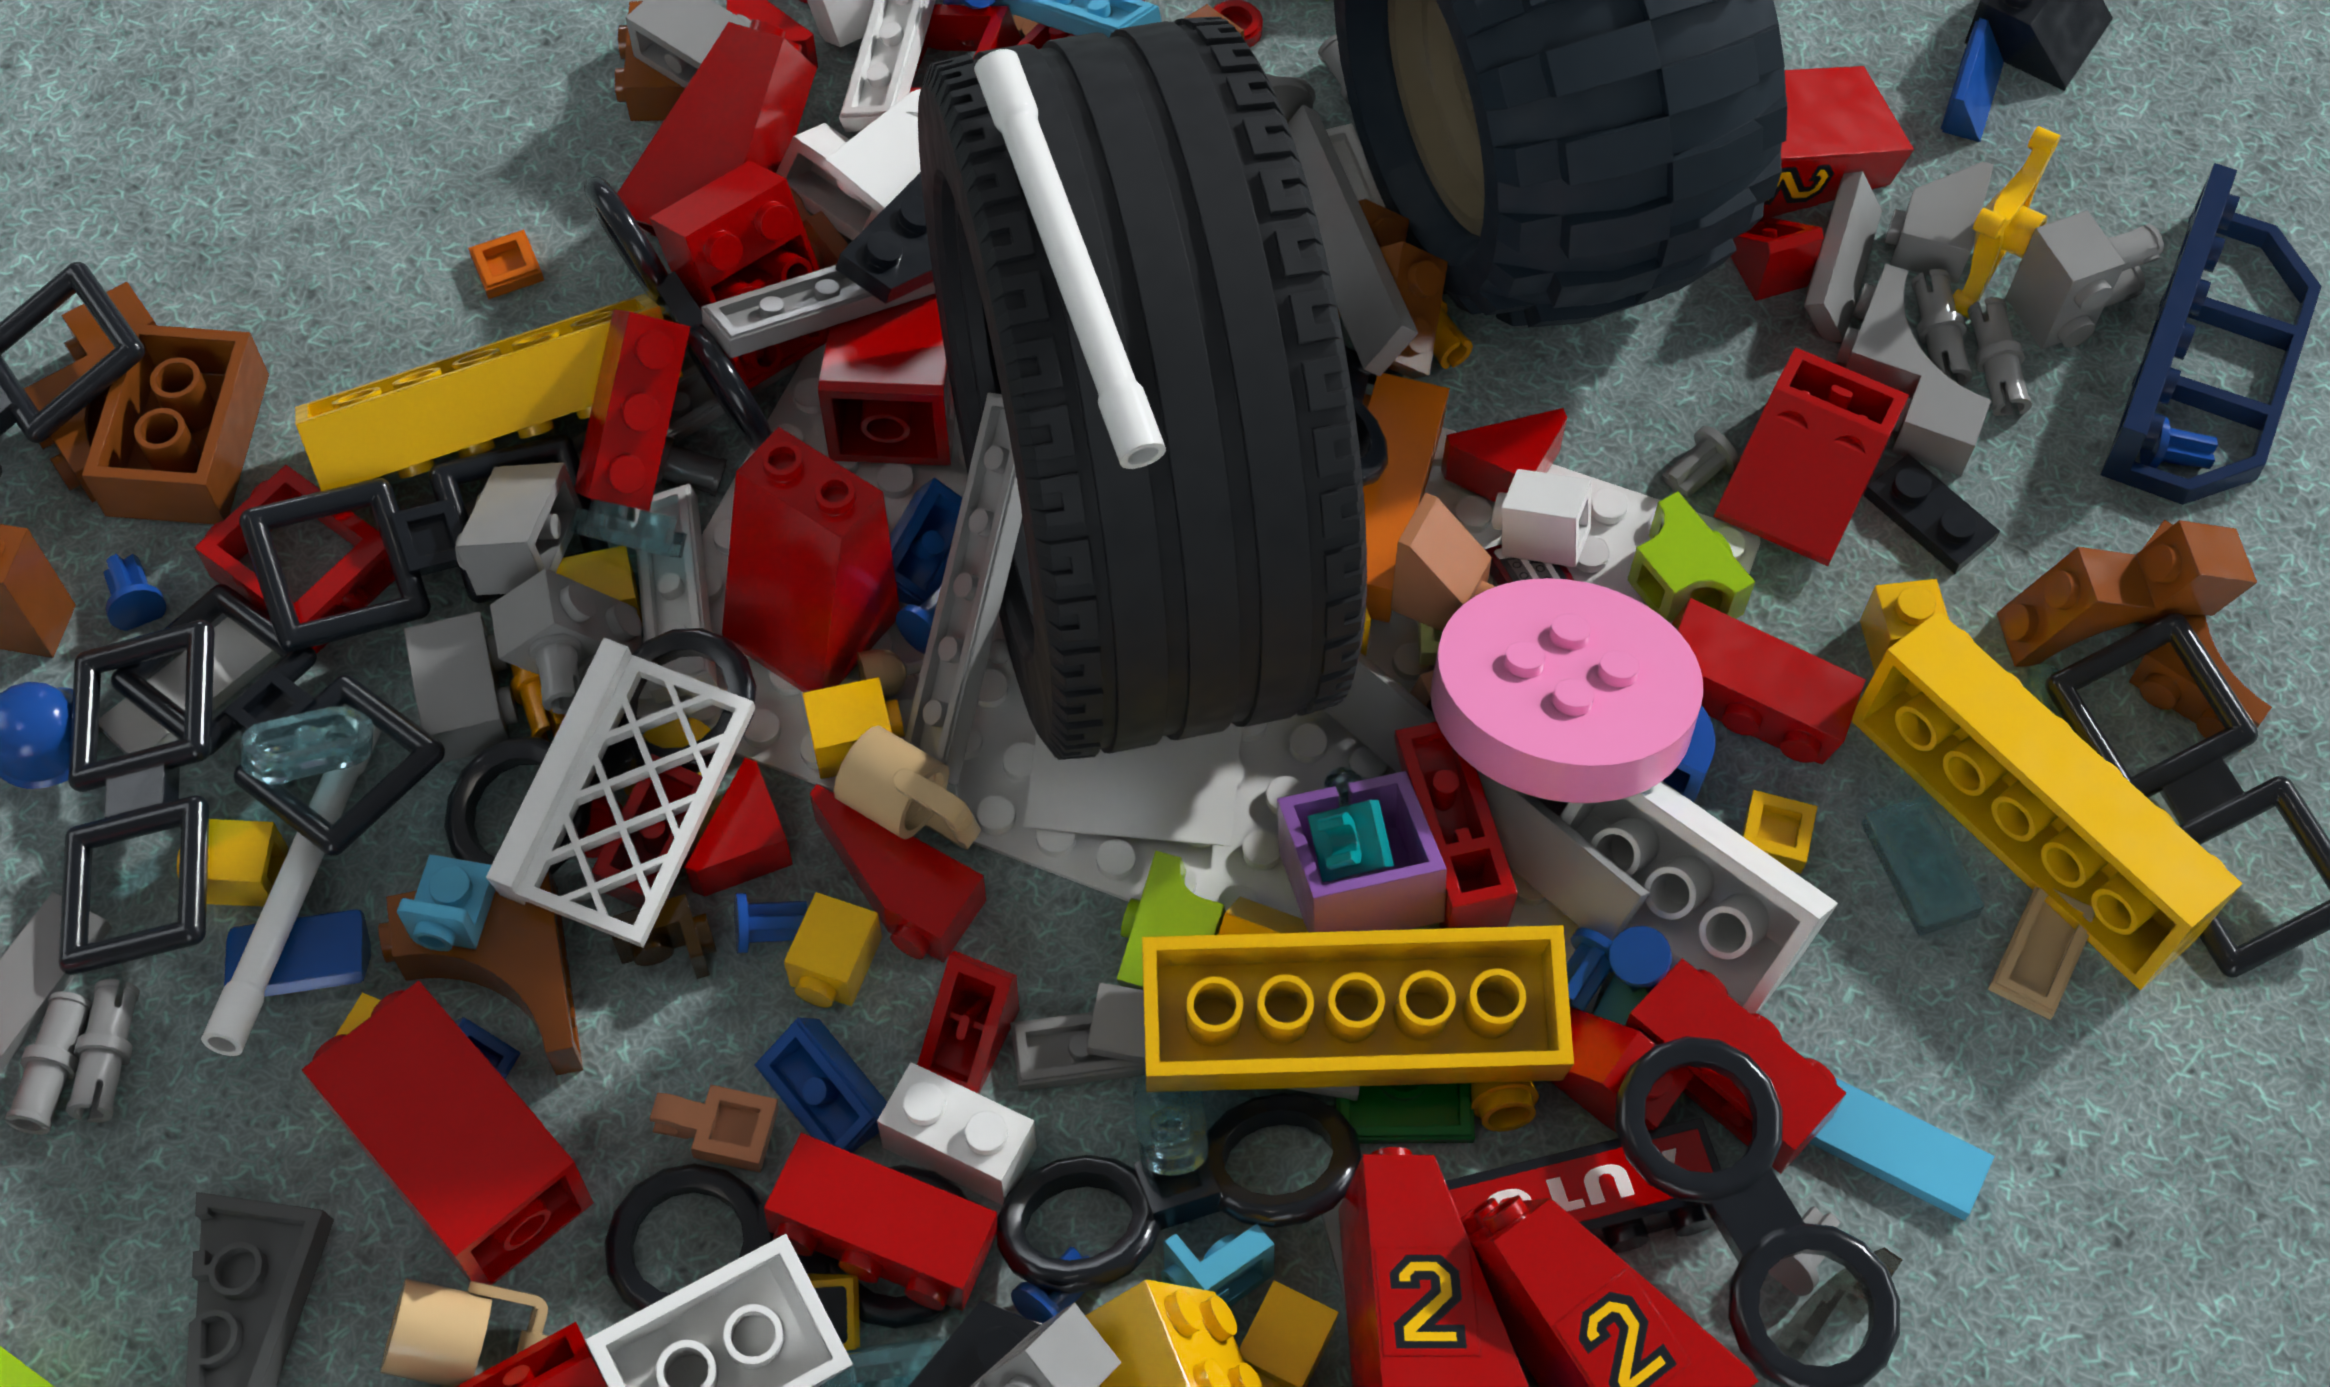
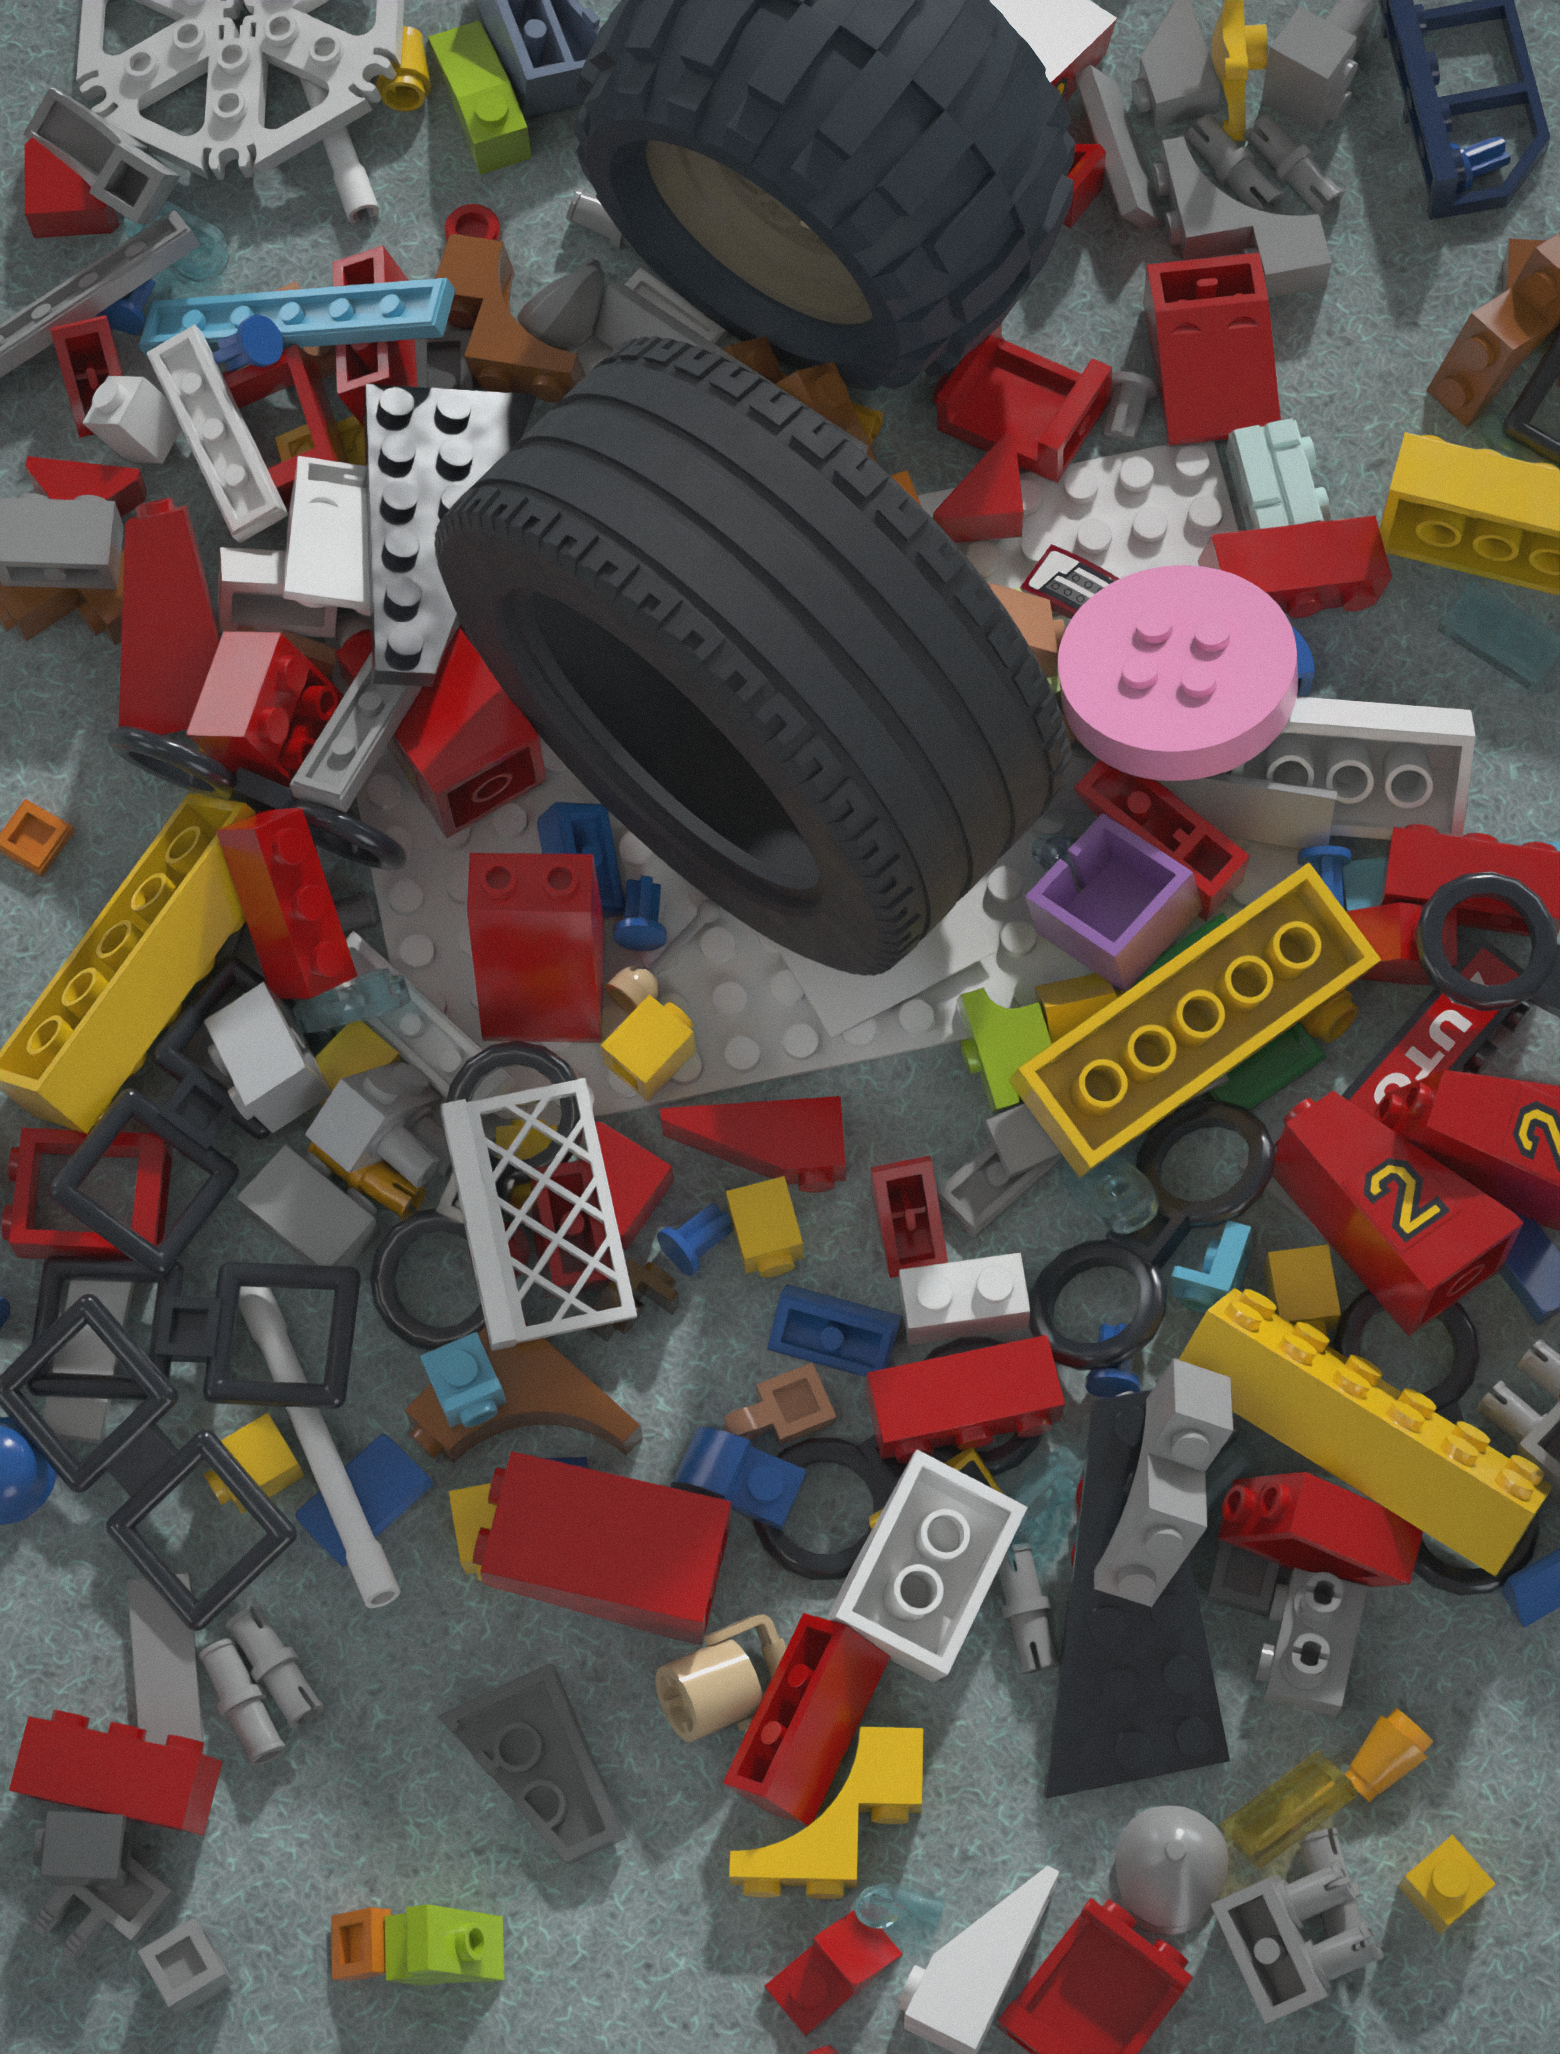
camera: 30 degrees left, 10 degrees up
(306, 744) = (251, 1336): clear light blue plate -> none
(630, 1162) = (732, 1470): none -> blue brick
(902, 789) = (732, 1070): tan piece -> none
(969, 597) = (679, 878): light grey tile -> none
(1120, 395) = (641, 542): white piece -> none
(1350, 840) = (1105, 894): teal tile -> none
(1544, 517) = (1054, 535): white brick -> none
(1611, 406) = (1026, 395): none -> red panel
(1640, 957) = (1363, 845): blue piece -> none
(1687, 562) = (1183, 503): lime brick -> none
(1780, 828) = (1384, 675): yellow plate -> none
(1797, 592) = (1274, 476): none -> light aqua brick
(1897, 611) = (1369, 448): yellow brick -> none
(1931, 513) = (1327, 335): black plate -> none

